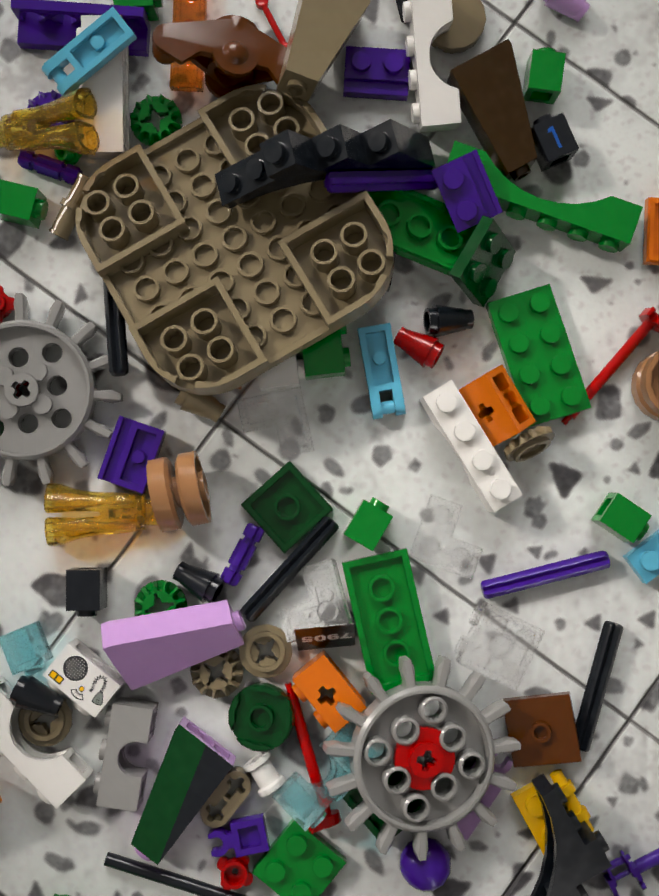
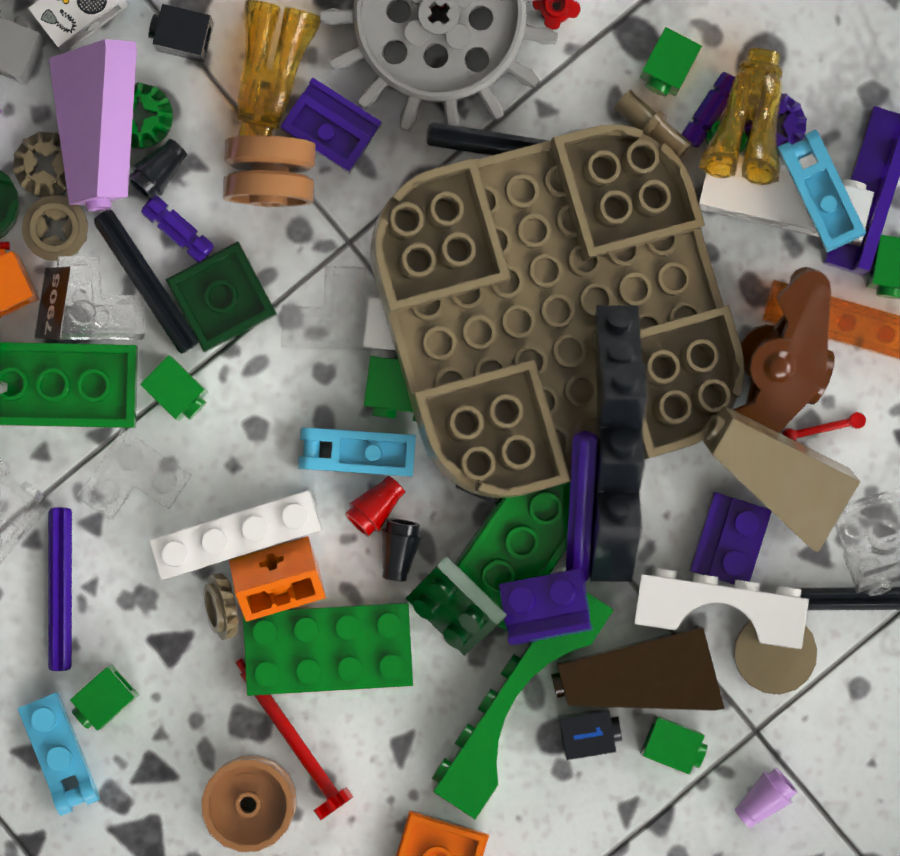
camera: 110 degrees right, 0 degrees up
(146, 132) = (750, 238): green gear -> none
(201, 405) = (362, 230): dark tan cone -> none

